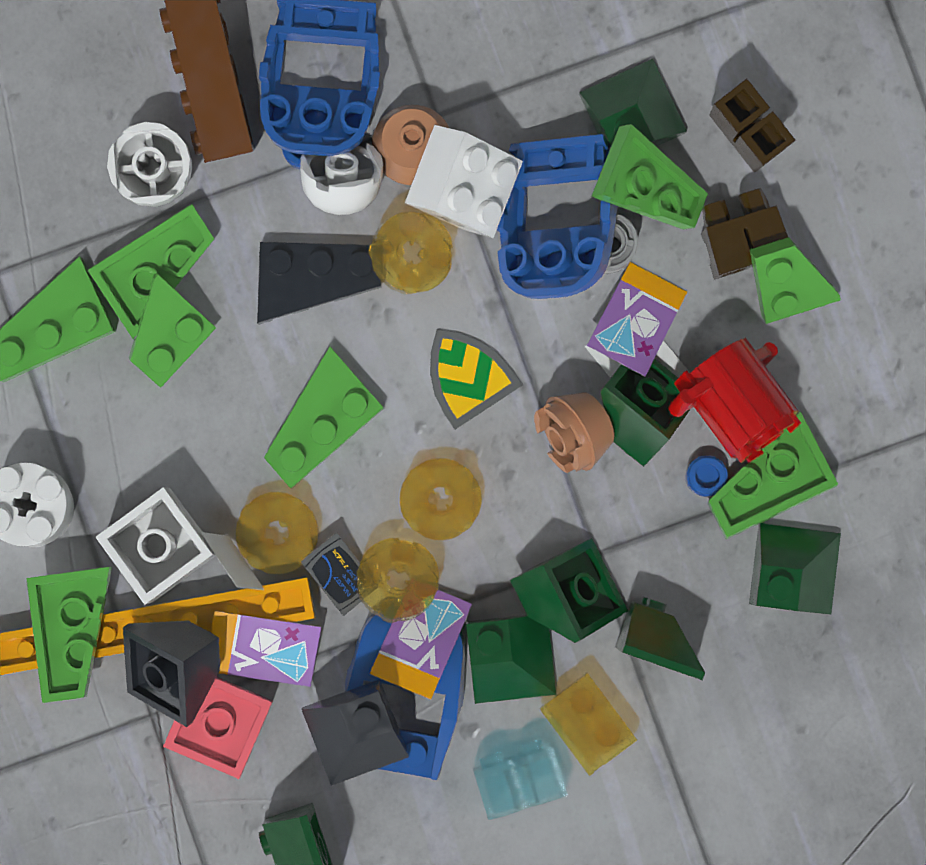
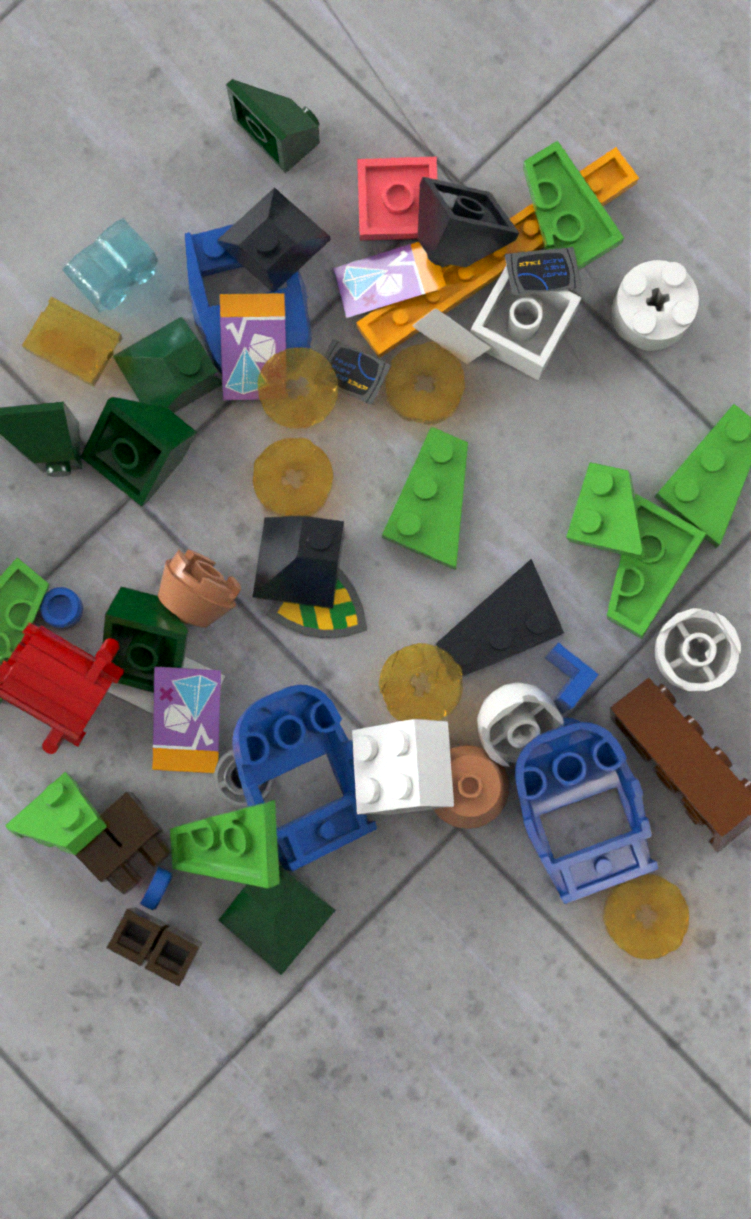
camera: 160 degrees right, 5 degrees down
(118, 578) = (543, 271): none -> sticker
(274, 185) = (580, 677): none -> blue panel
(470, 417) = (299, 560): none -> black slope
(729, 181) = (156, 888): none -> blue tile

